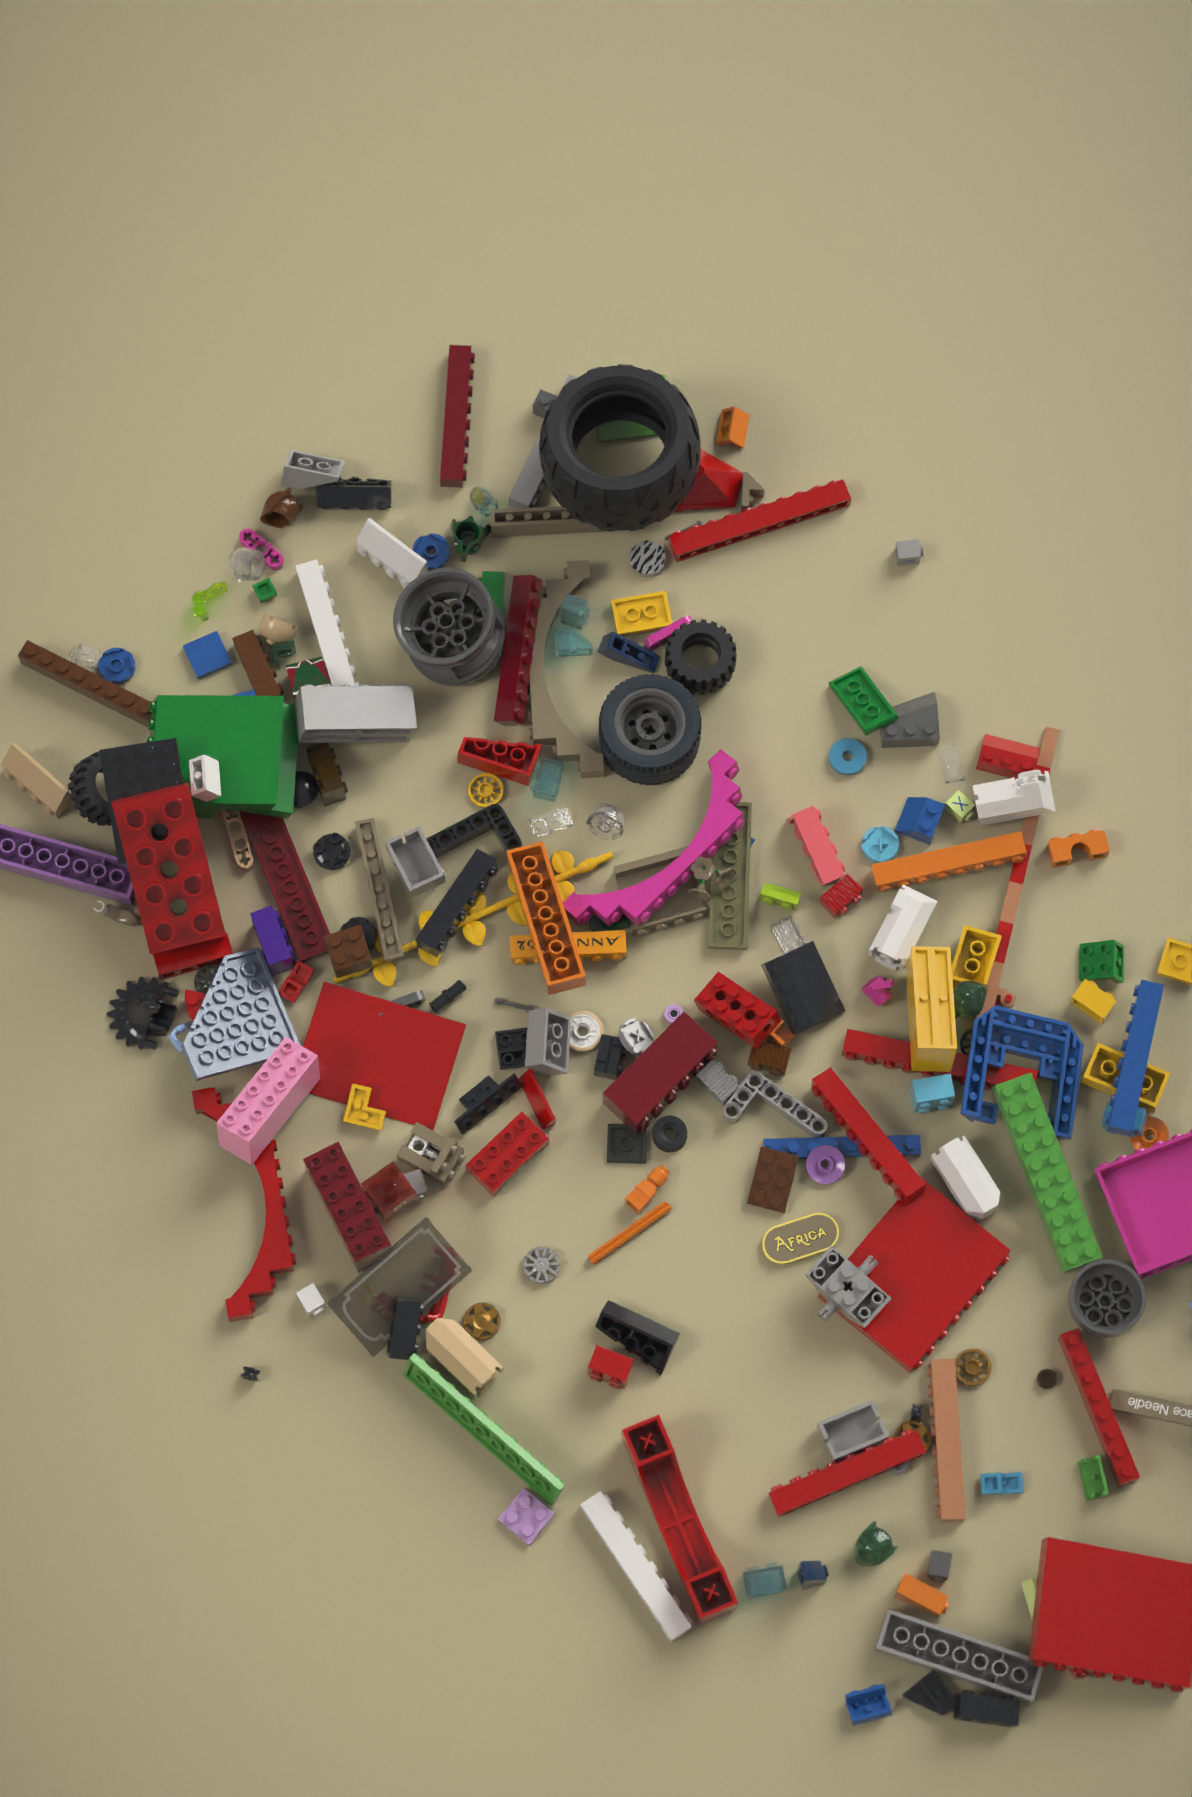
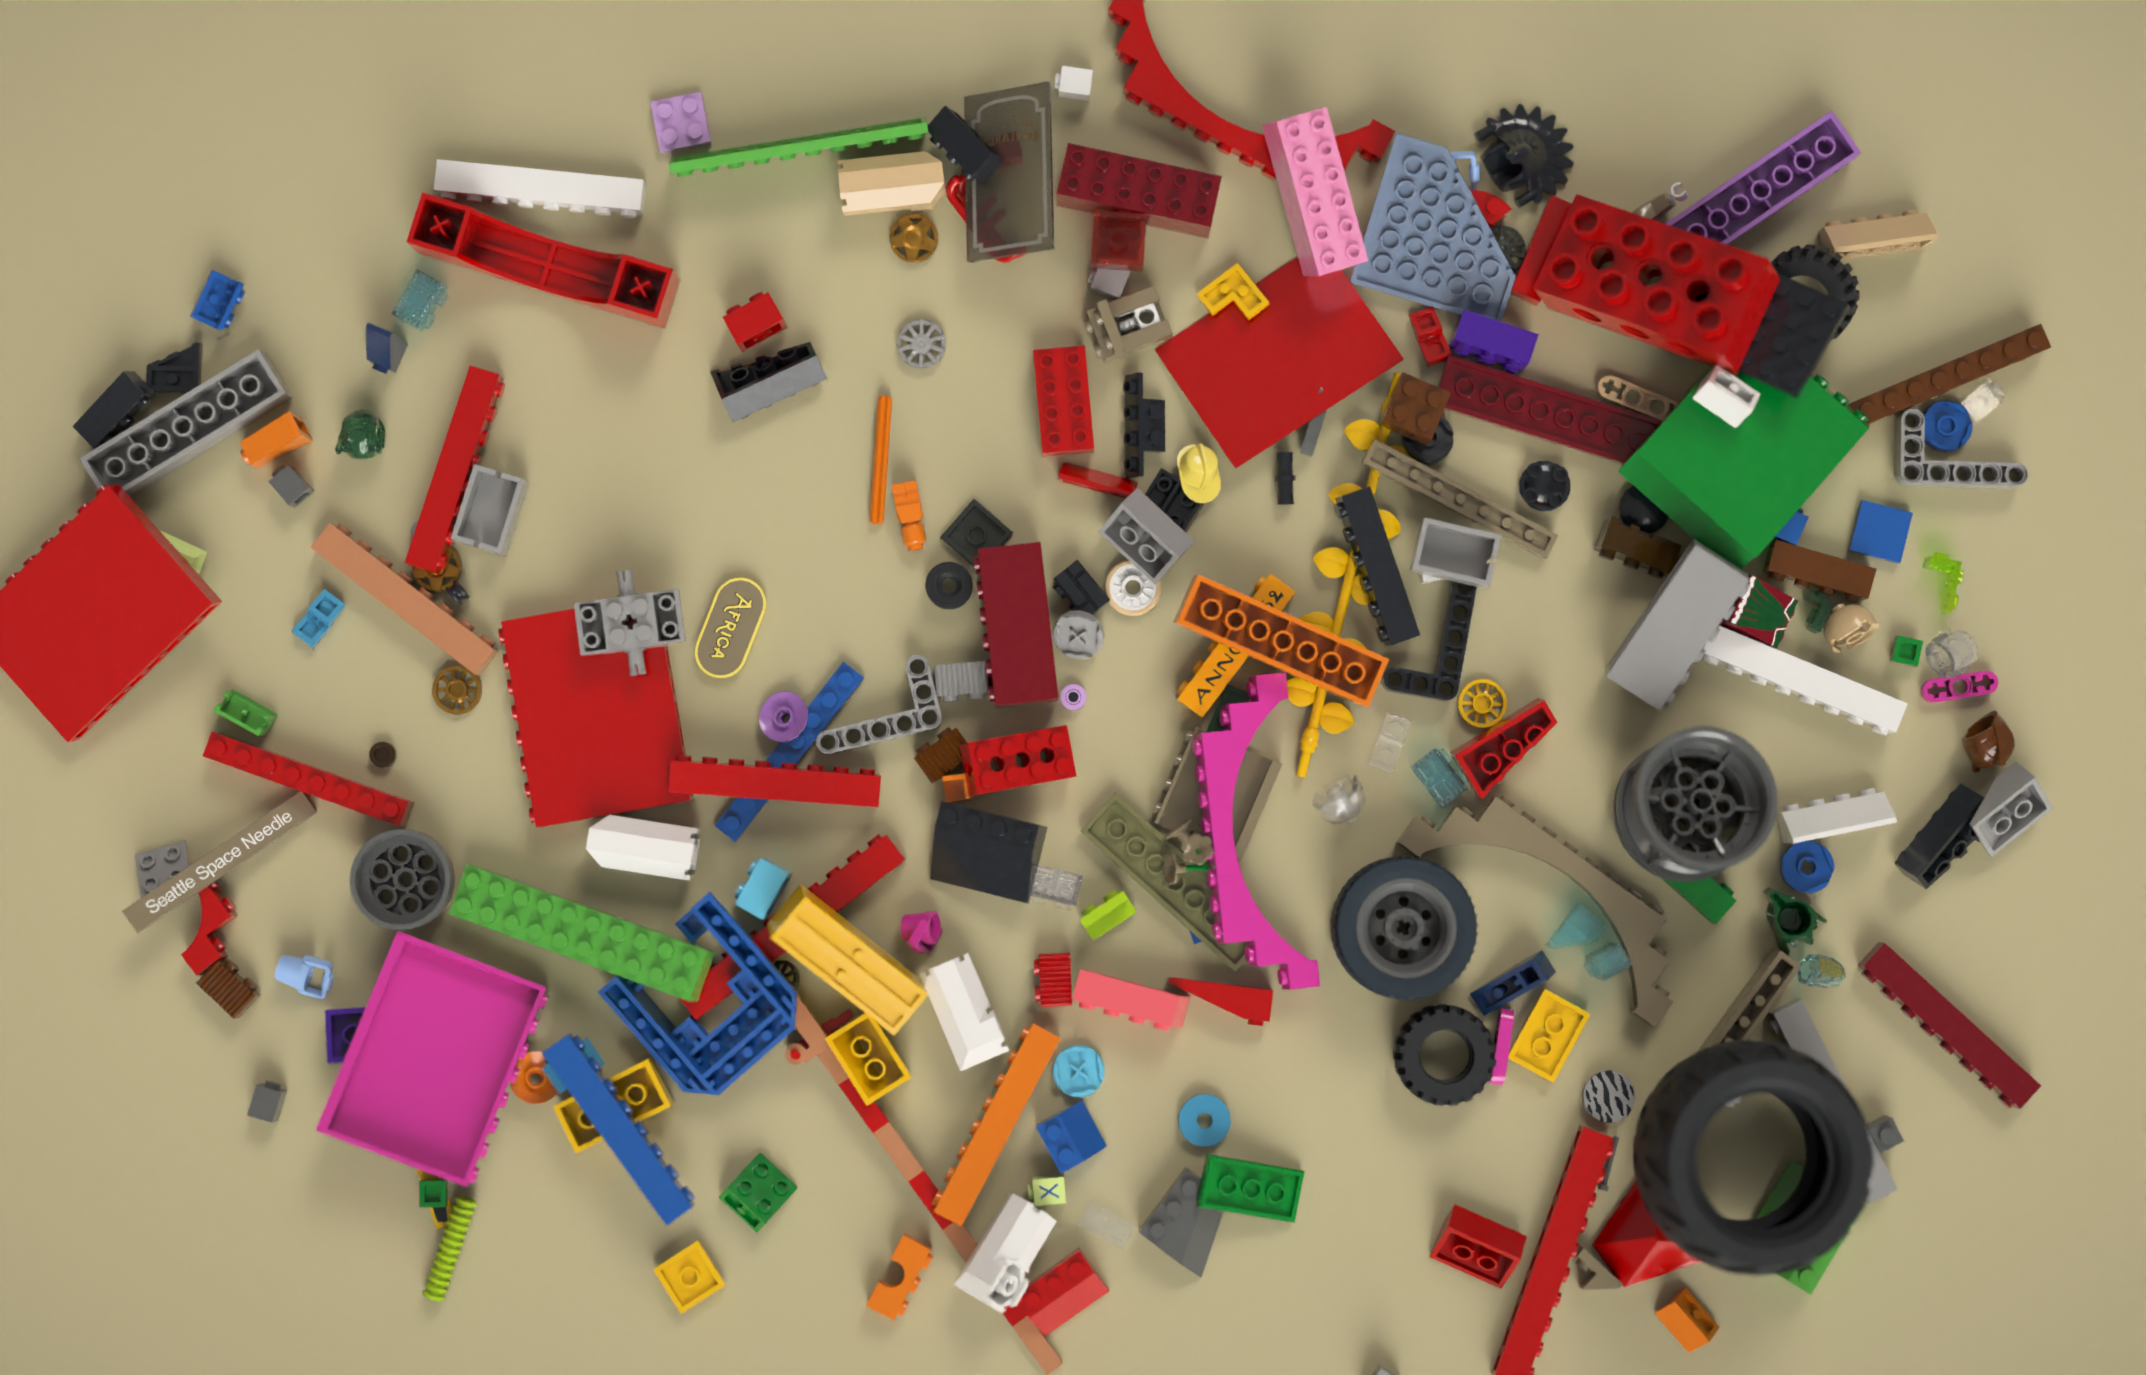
camera: 130 degrees right, 15 degrees up
(142, 644) = (1947, 469): none -> light grey beam
(484, 1046) = (1199, 473): none -> light yellow piece
(498, 1001) = (1202, 553): dark grey hinge -> none
(518, 650) = (1611, 862): dark red brick -> none
(764, 786) = (1242, 1001): none -> red slope
(772, 1179) = (812, 650): reddish brown plate -> none
(788, 561) = (1478, 1246): none -> red slope
(969, 998) = (825, 1009): clear green helmet -> none
(1093, 1000) = (723, 1146): yellow brick -> none

